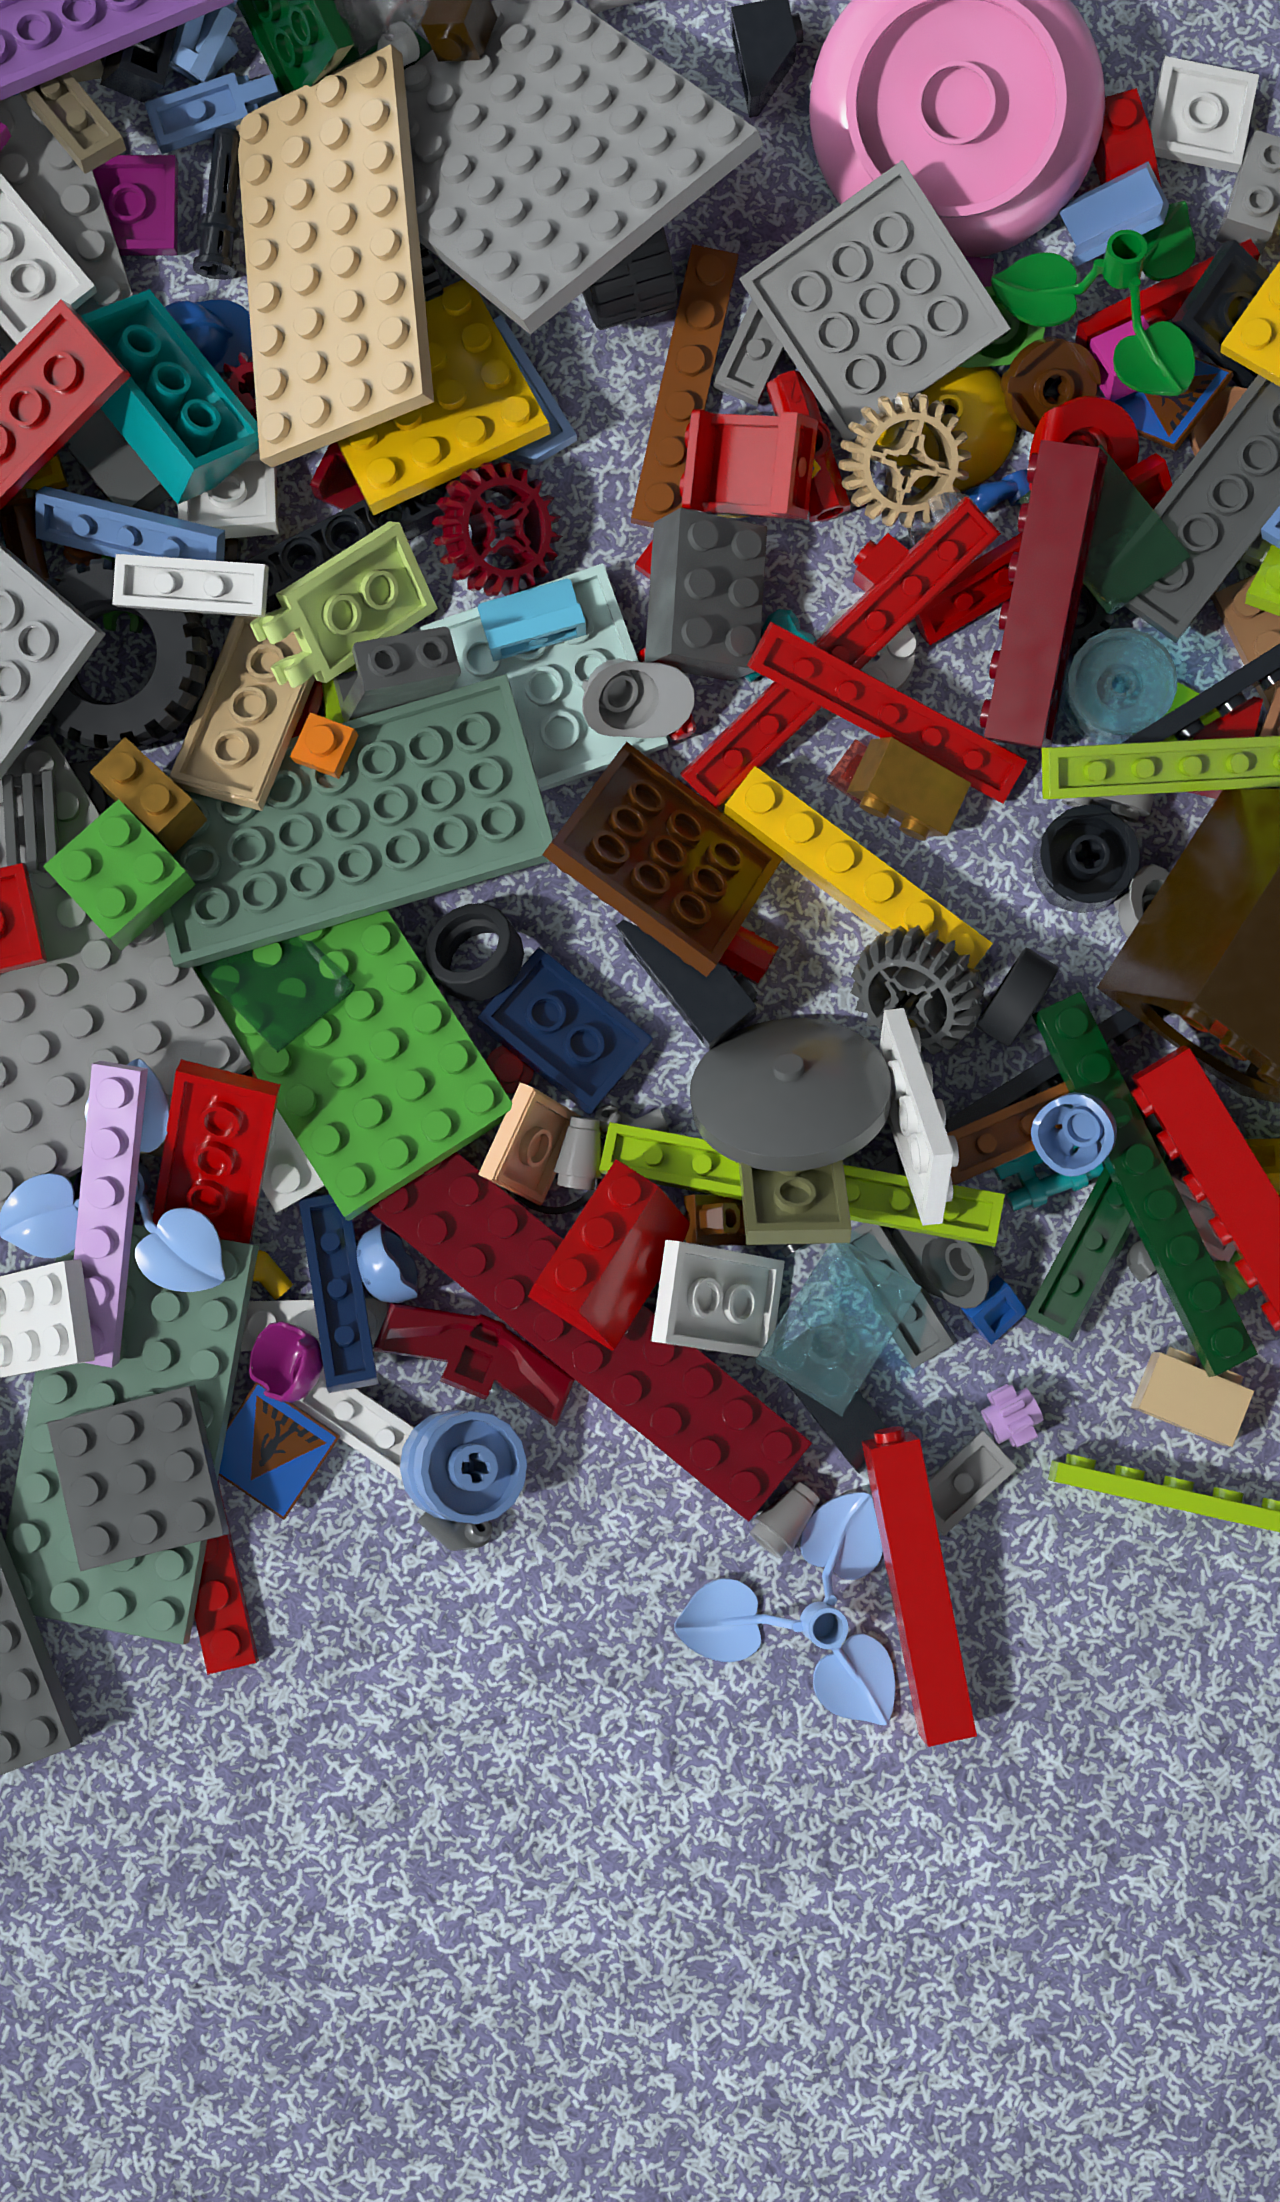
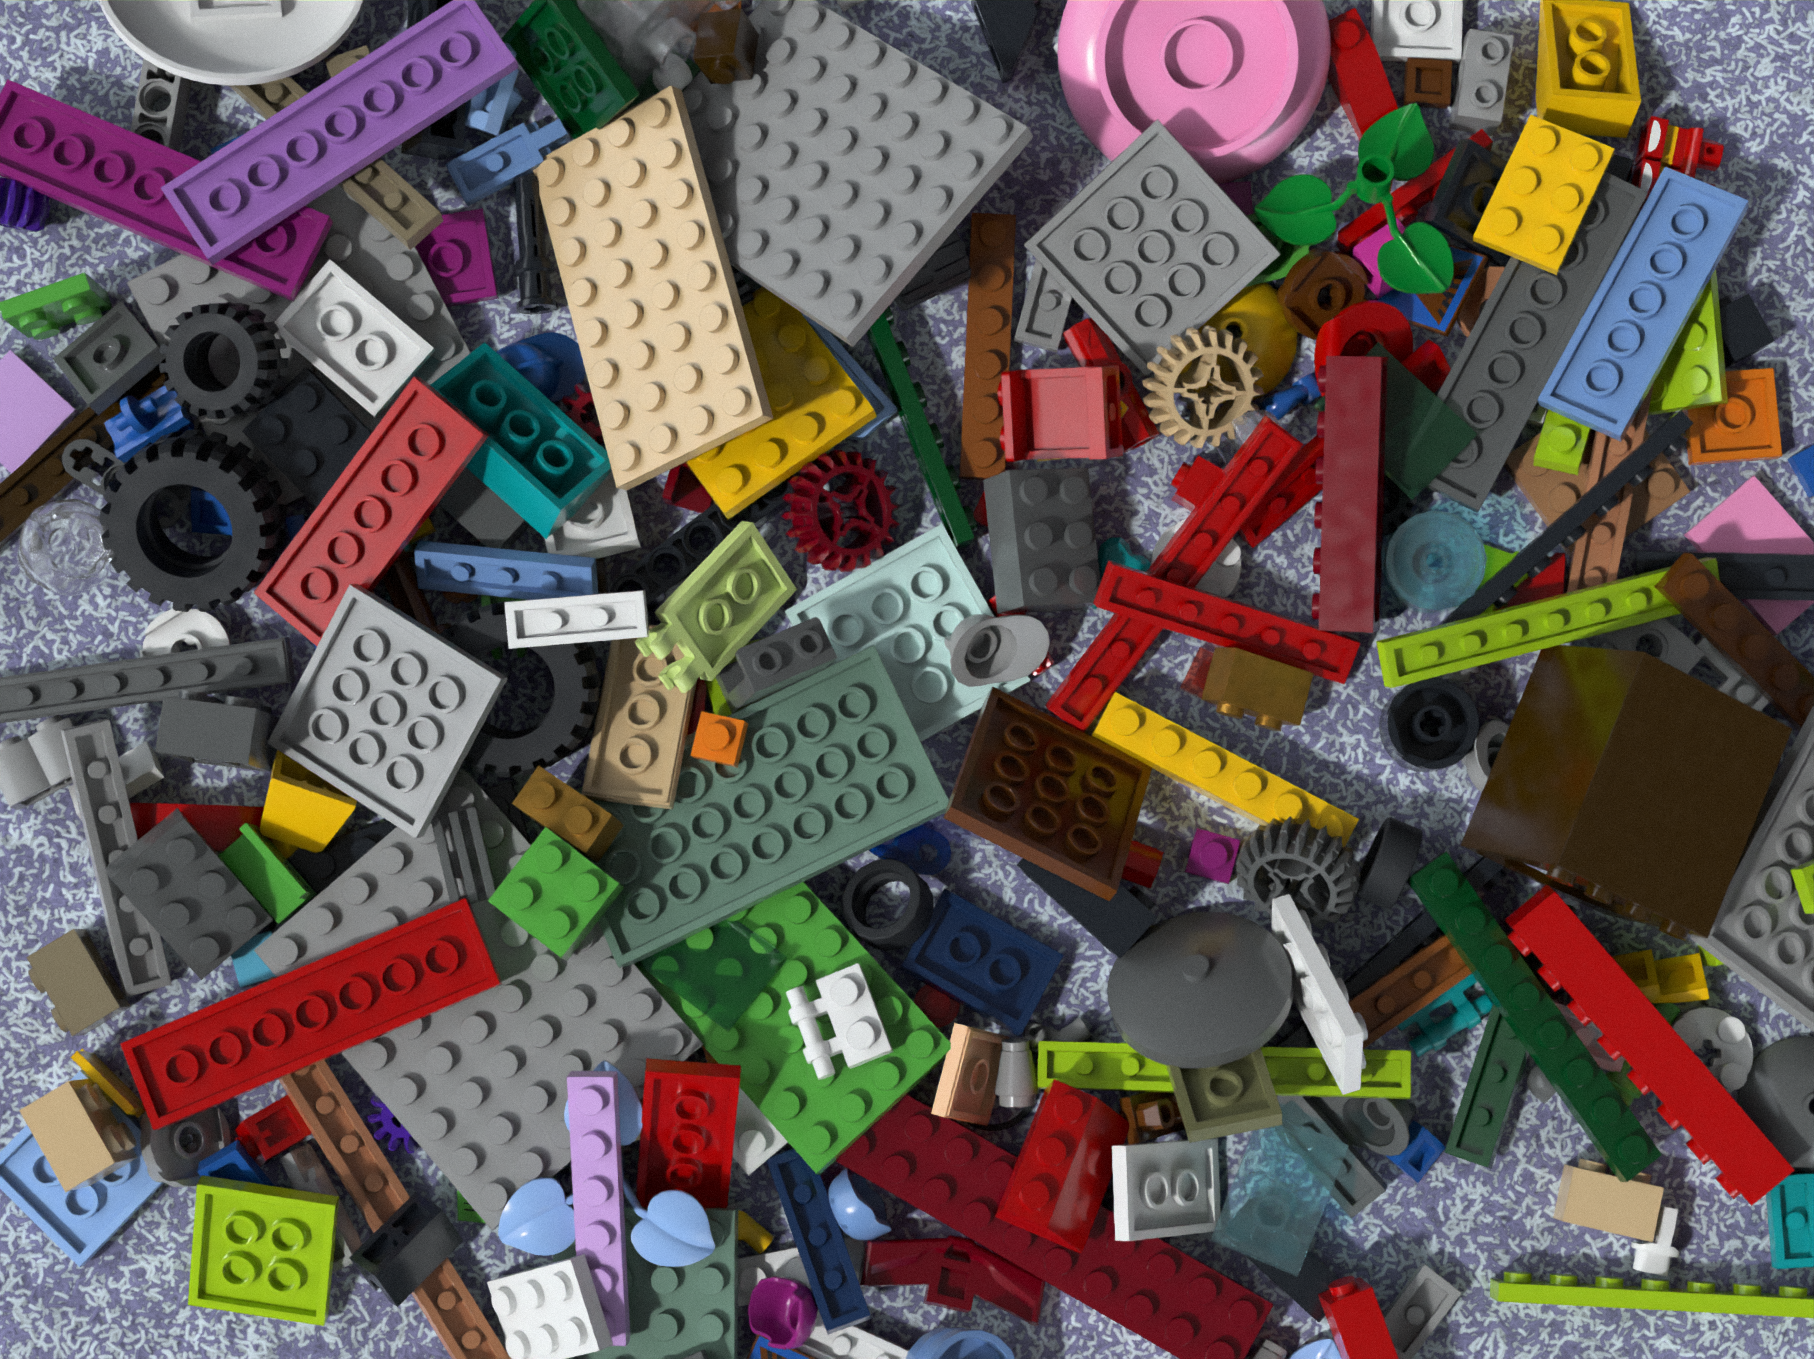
camera: 15 degrees left, 0 degrees up
(412, 1056) = (852, 1015): none -> white plate
(508, 896) = (907, 847): none -> clear blue plate
(532, 619) = (886, 587): medium azure panel -> none
(591, 429) = (923, 437): none -> dark green plate
(830, 962) = (1212, 856): none -> magenta plate
(1012, 1415) = (1448, 1245): lavender gear -> none
(1083, 1125) = (1472, 974): medium blue helmet -> none
(1126, 202) = (1355, 126): medium blue panel -> none
(1202, 185) = (1427, 83): none -> reddish brown plate
(1235, 1462) = (1656, 1255): none -> white piece

